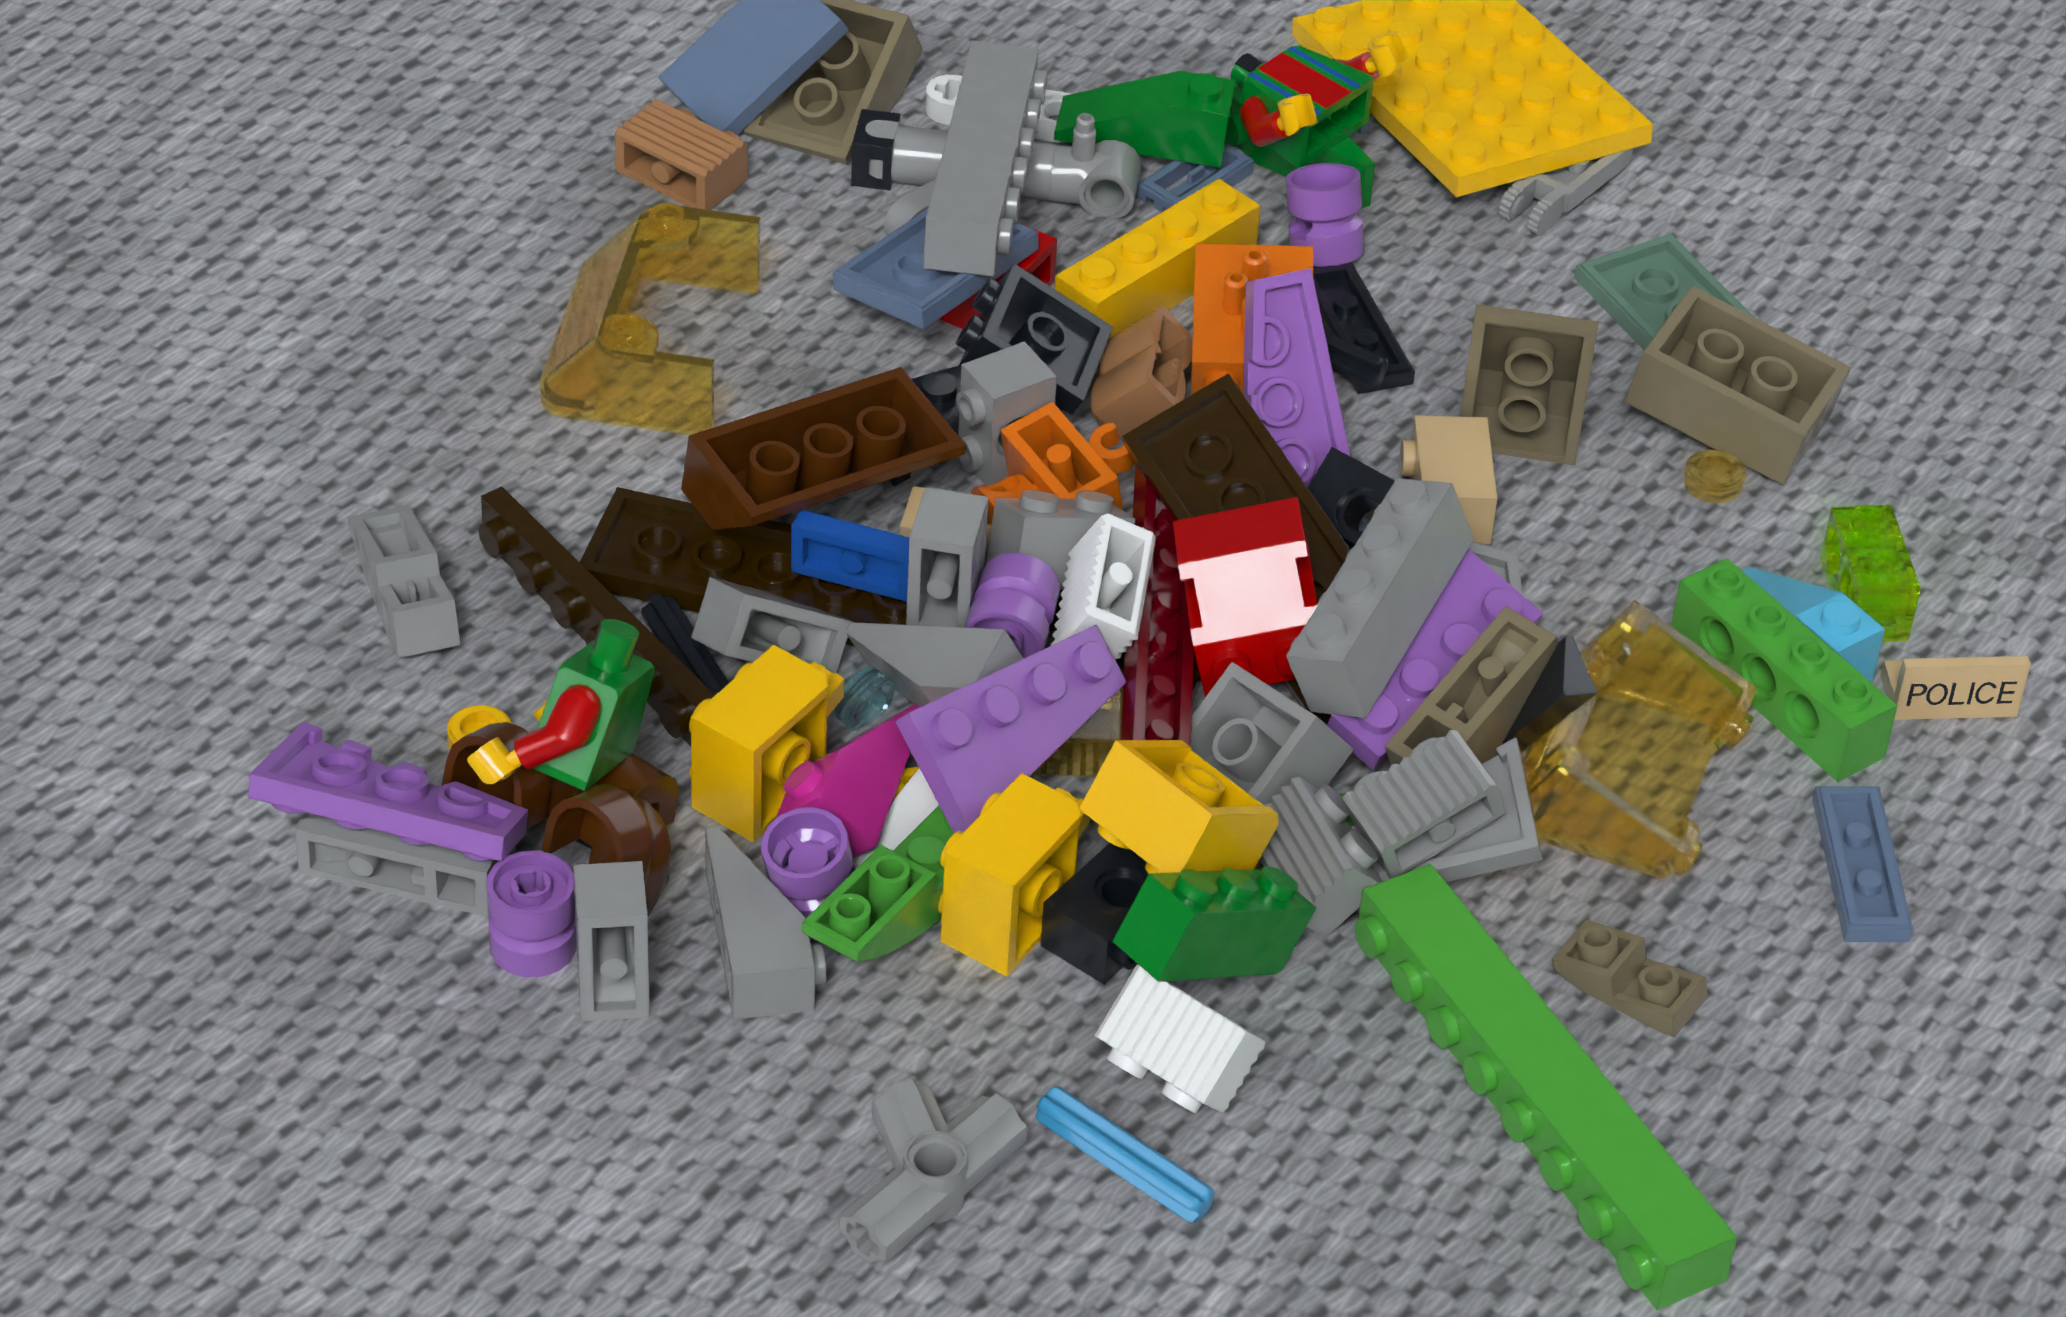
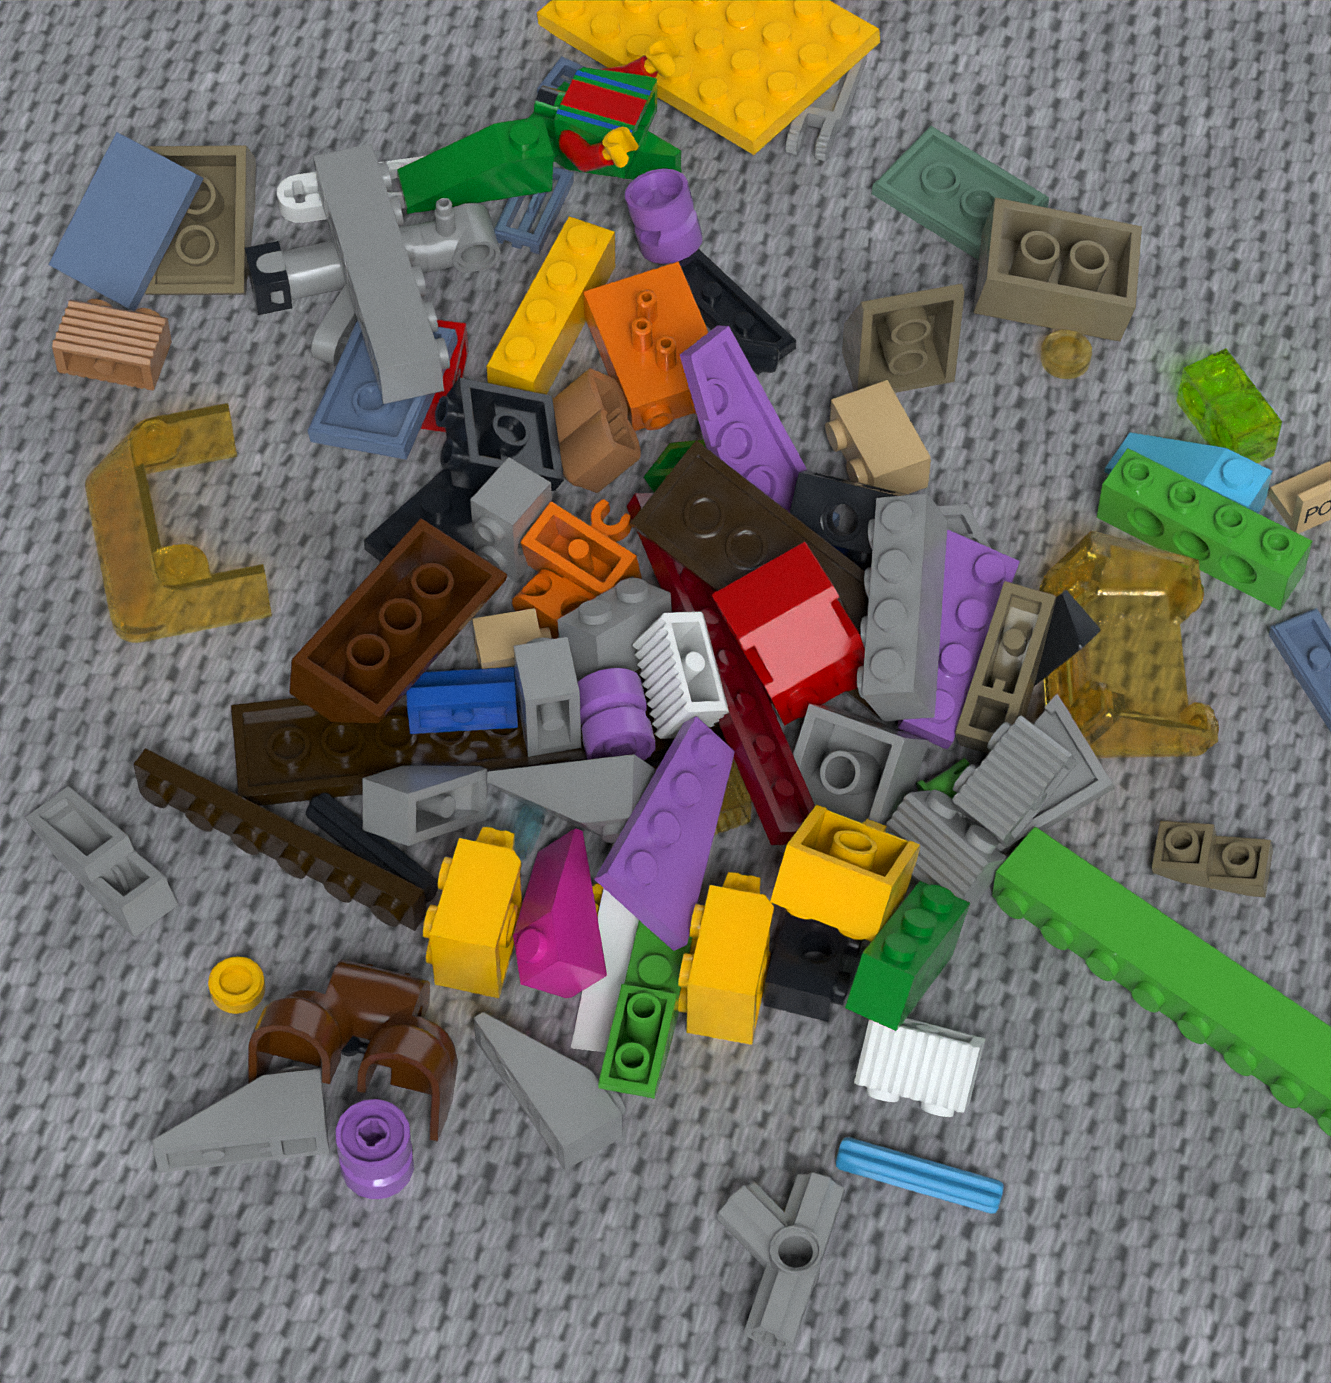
camera: 20 degrees left, 15 degrees up
(396, 799) = (191, 1099): medium lavender wing -> none
(587, 719) = (357, 978): green torso -> none
(611, 940) = (454, 1152): light grey slope -> none
(807, 856) = (571, 1018): medium lavender wheel -> none

